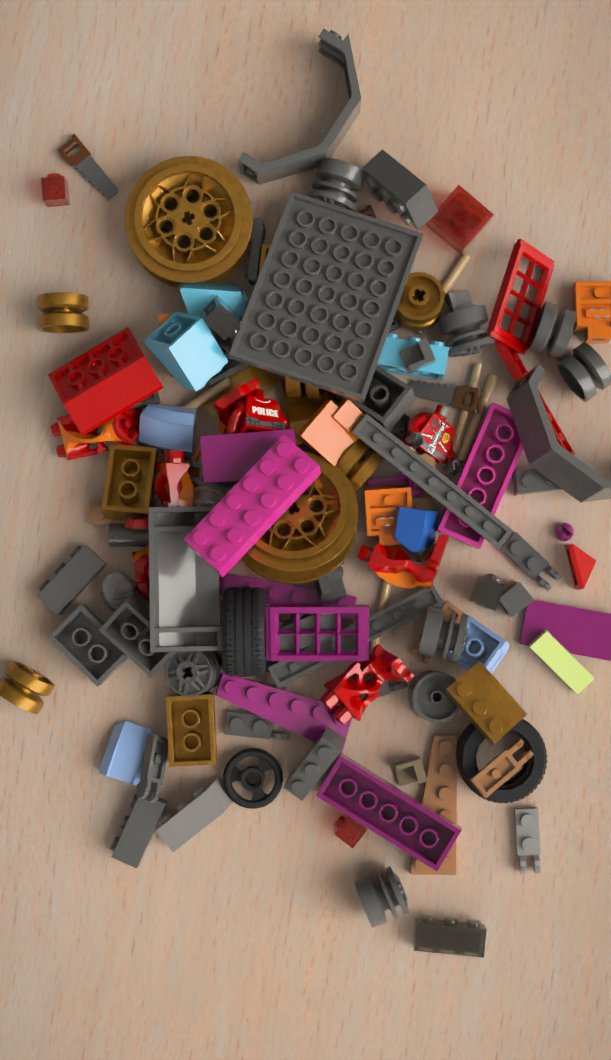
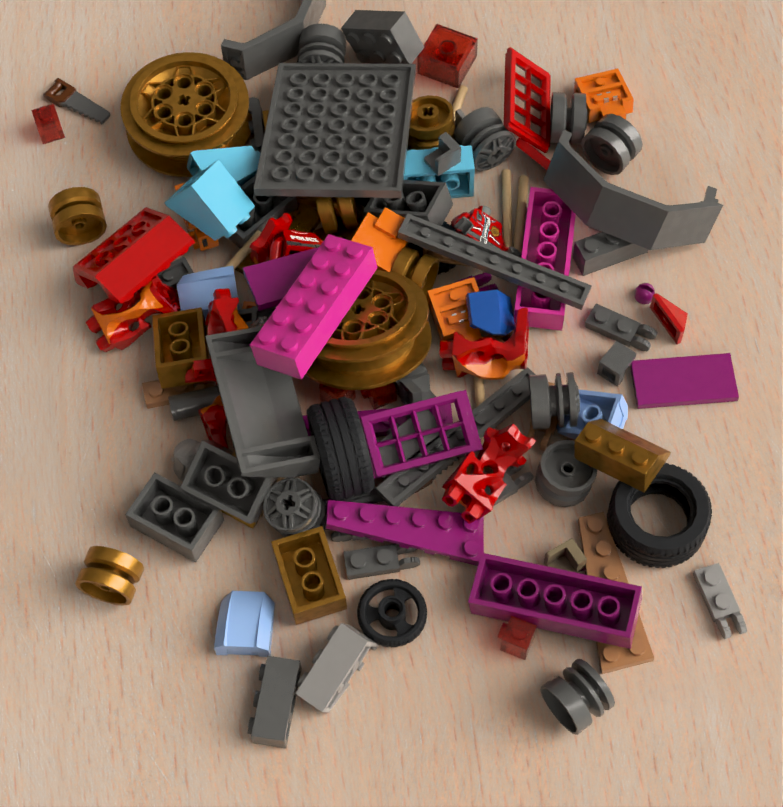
camera: 15 degrees left, 25 degrees down
(71, 579) = (139, 460): dark grey brick -> none
(153, 768) = (275, 623): dark grey hinge -> none
(221, 318) = (240, 161): clear smoke brick -> none
(314, 763) = (456, 571): dark grey brick -> none
(448, 395) = (492, 200): piece -> none
(449, 936) = (670, 726): clear smoke brick -> none
(487, 591) = (586, 357): clear smoke brick -> none
(500, 769) = (660, 513): medium nougat hinge -> none
(561, 661) = (688, 409): yellowish green tile -> none

